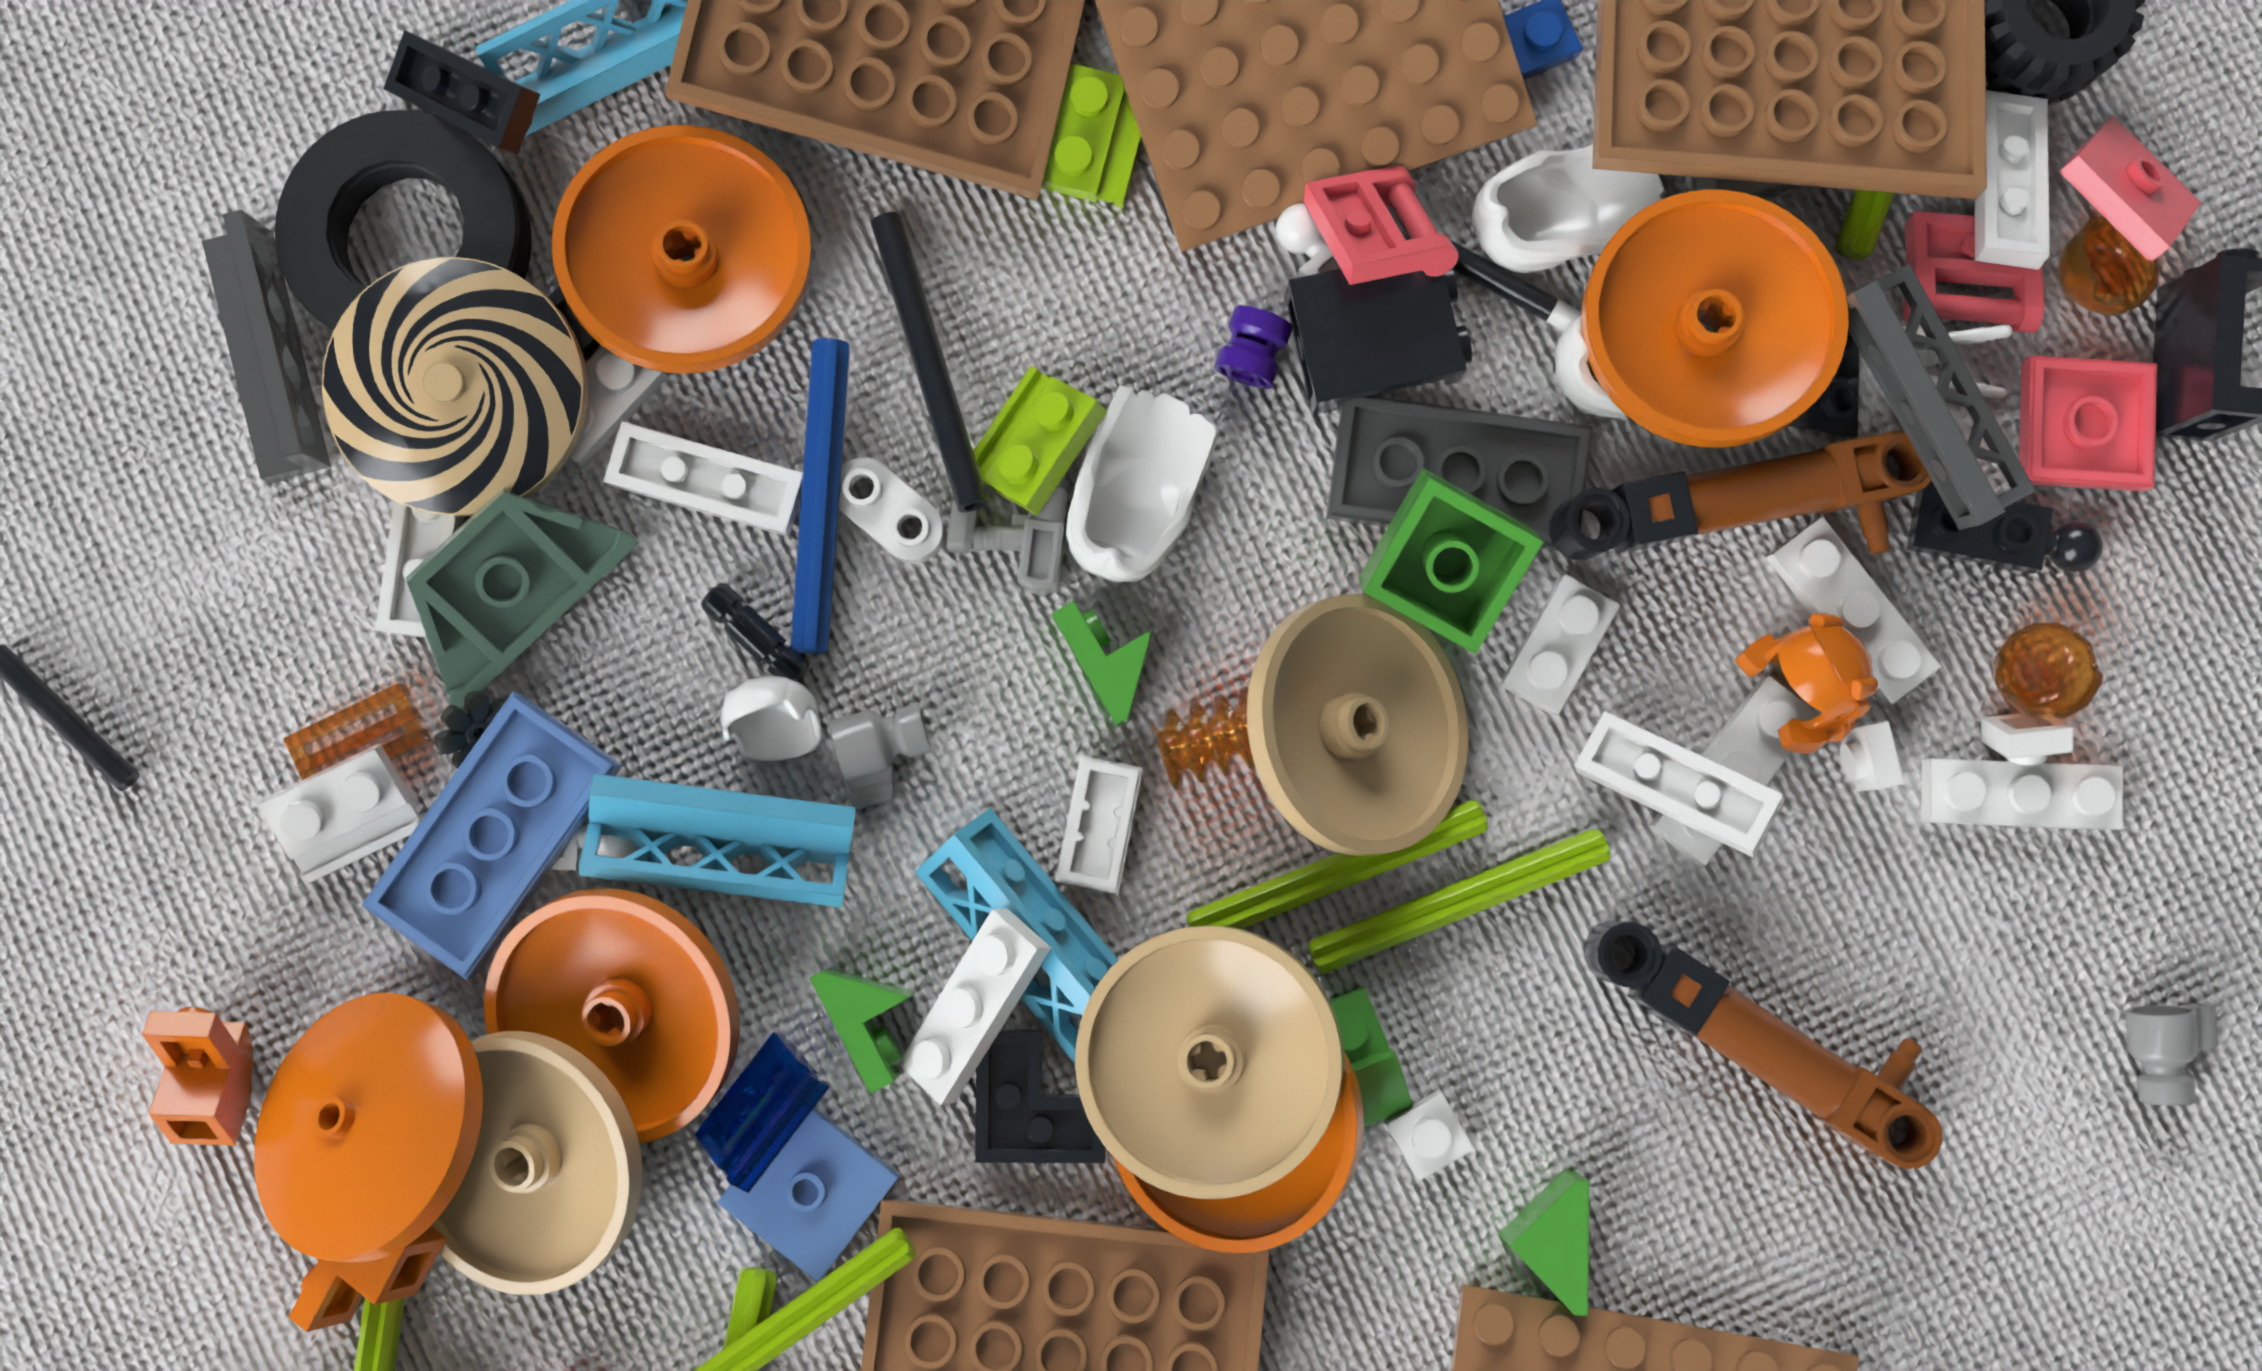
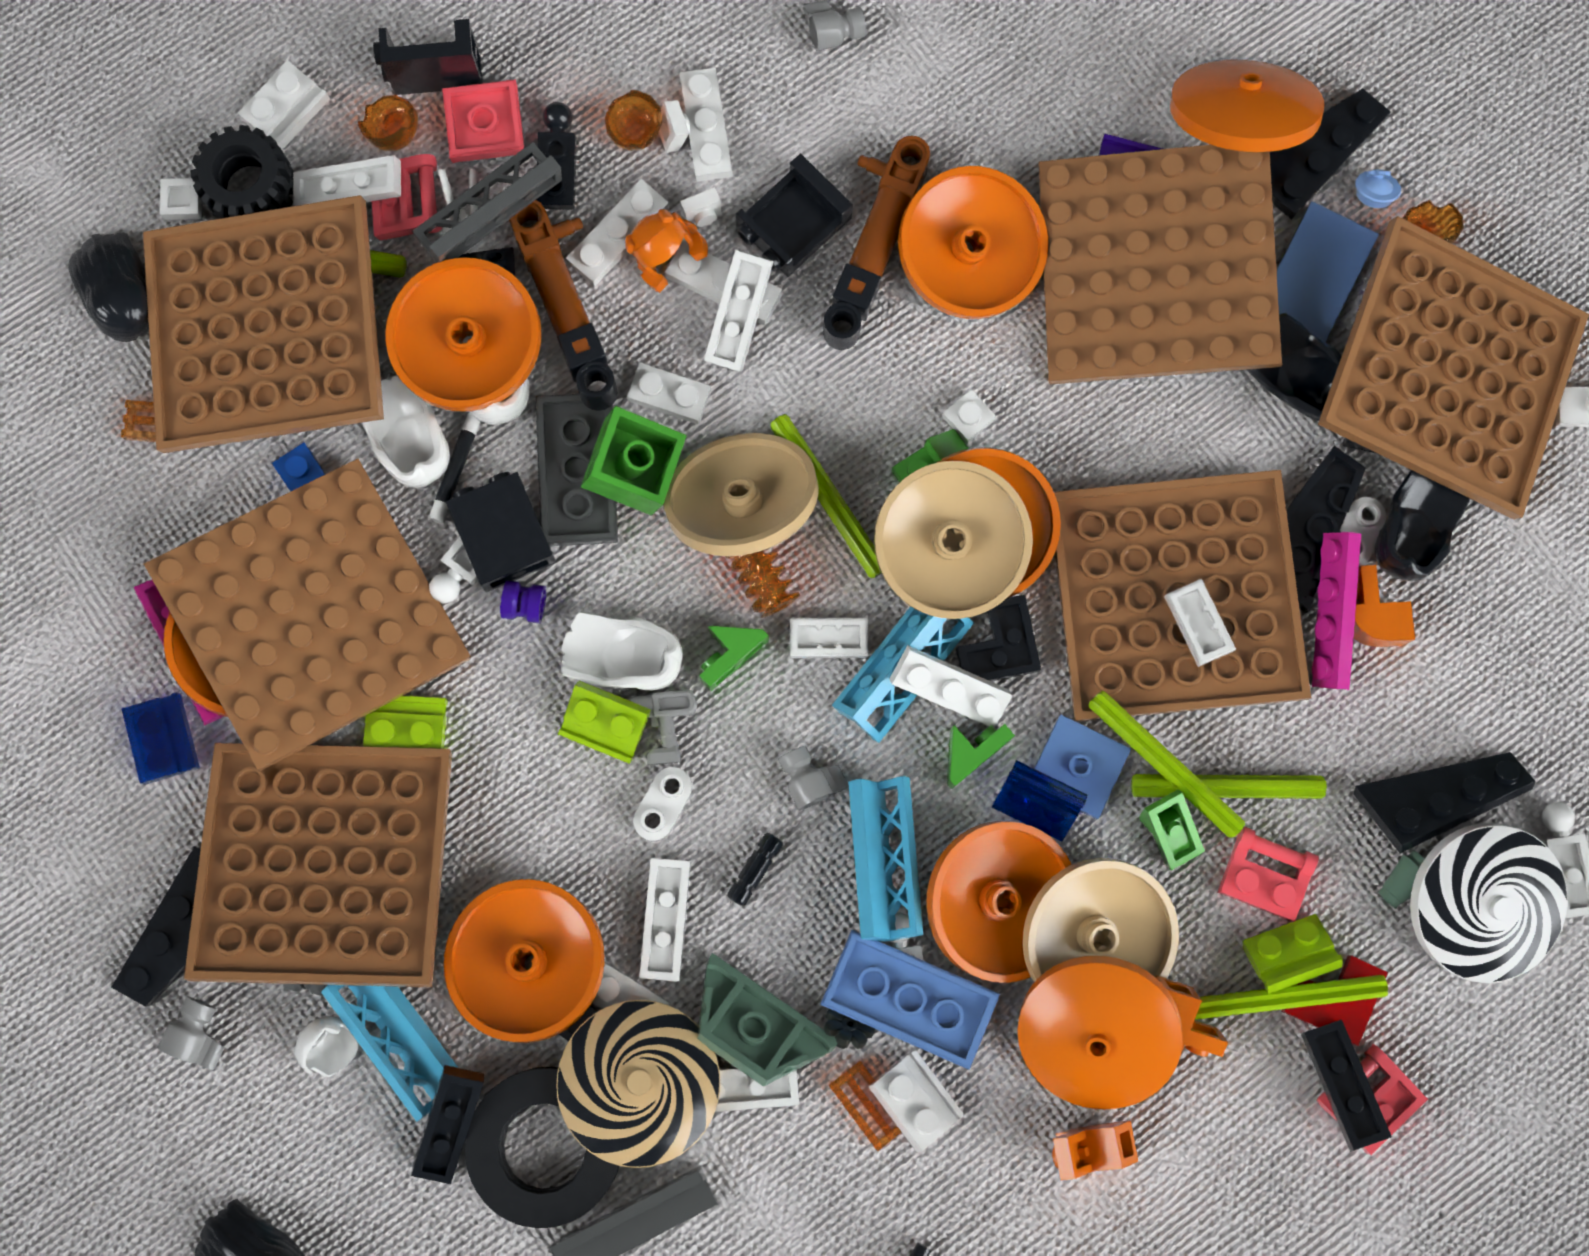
camera: 105 degrees left, 5 degrees down
(670, 1320) = (1173, 829): none -> bright green slope
(771, 719) = (805, 844): white hair -> none
(820, 495) = (662, 844): blue axle -> none
(929, 362) = (566, 796): black piece -> none
(1364, 235) = (443, 546): coral plate -> none
(1459, 900) = (831, 423): lime axle -> none
(1554, 1238) = (1011, 335): bright green slope -> none
(1744, 1266) = (999, 223): none -> orange dish
(1829, 911) = (794, 217): none -> black panel
(2131, 188) = (341, 117): coral plate -> none
(2168, 102) = (284, 104): none -> white plate

